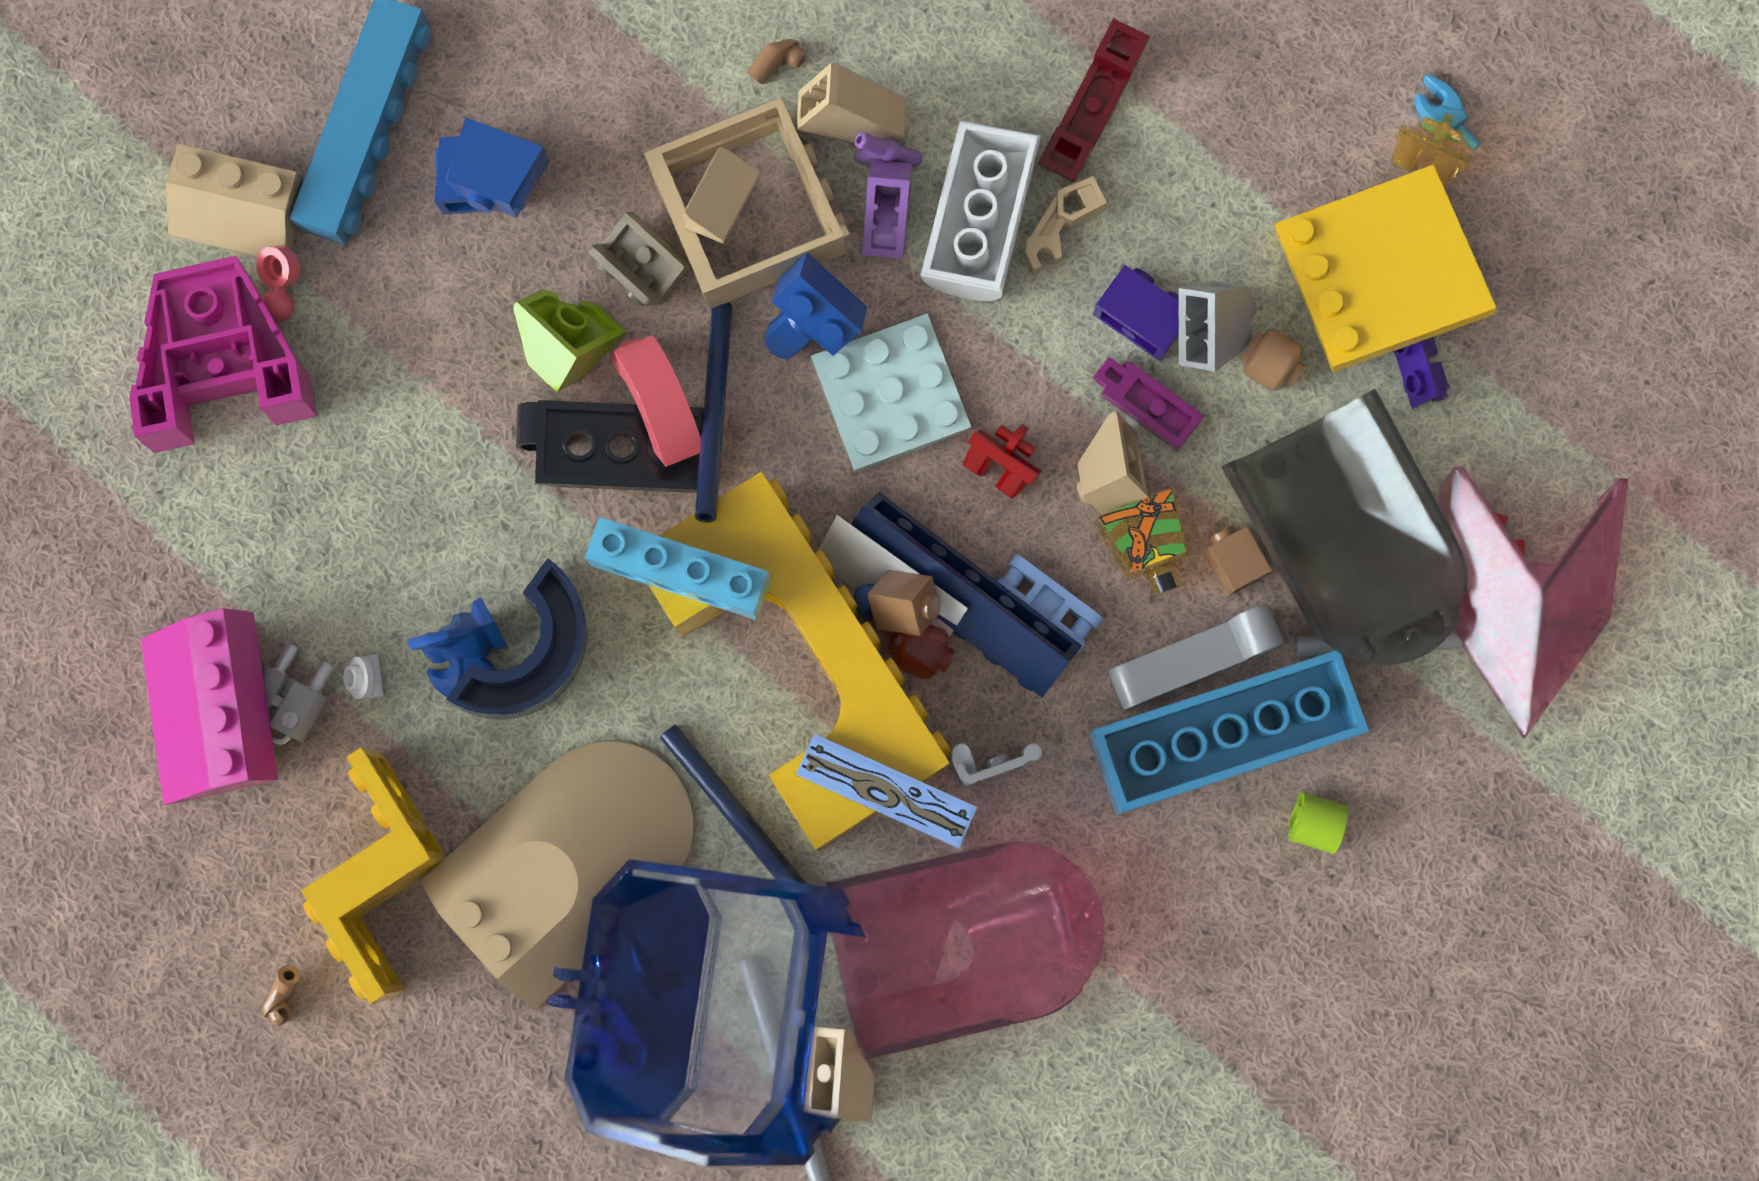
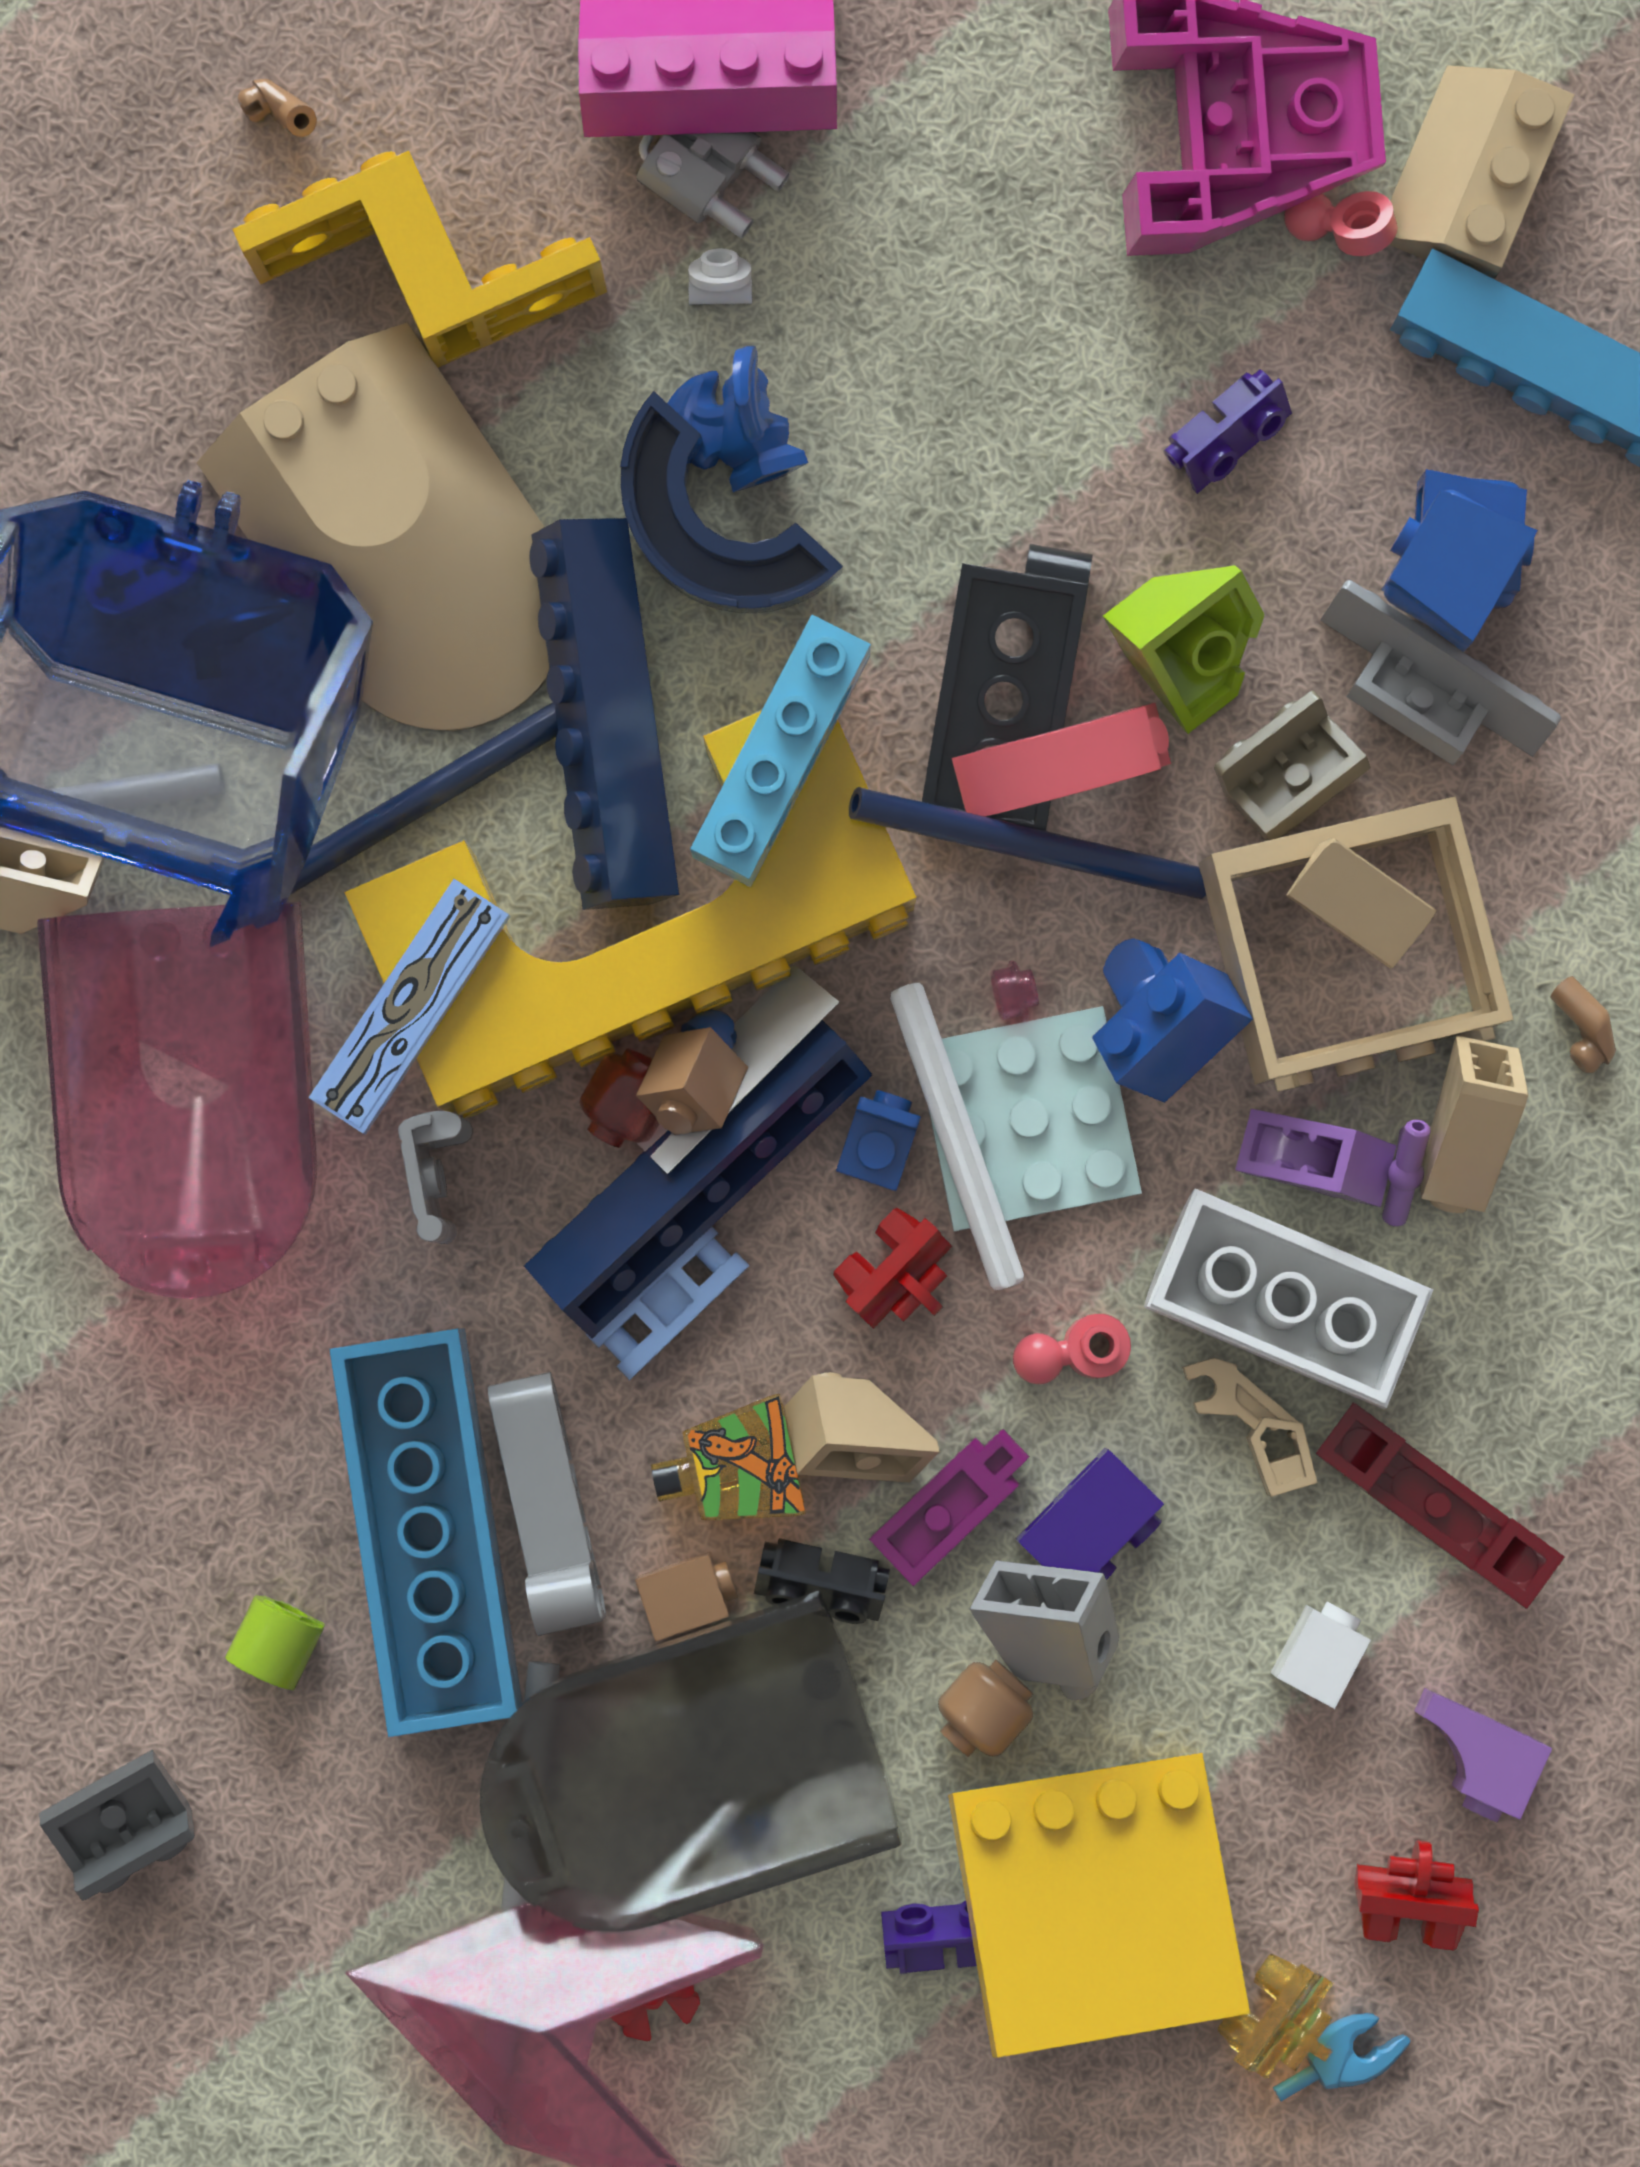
camera: 100 degrees right, 5 degrees up
(411, 321) = (1252, 413): none -> dark purple hinge
(572, 184) = (1429, 684): none -> light grey bracket
(666, 704) = (603, 713): none -> dark blue brick
(810, 413) = (1014, 991): none -> clear pink plate
(910, 430) = (957, 1136): none -> white axle
(920, 484) = (879, 1140): none -> blue bracket
(1043, 360) = (1041, 1358): none -> coral plate
(1199, 158) = (1322, 1653): none -> white brick
(1212, 492) = (846, 1589): none -> black hinge
(1246, 49) = (1492, 1761): none -> medium lavender arch
(1335, 81) = (1417, 1891): none -> red hips
(1458, 906) = (119, 1825): none -> dark grey bracket

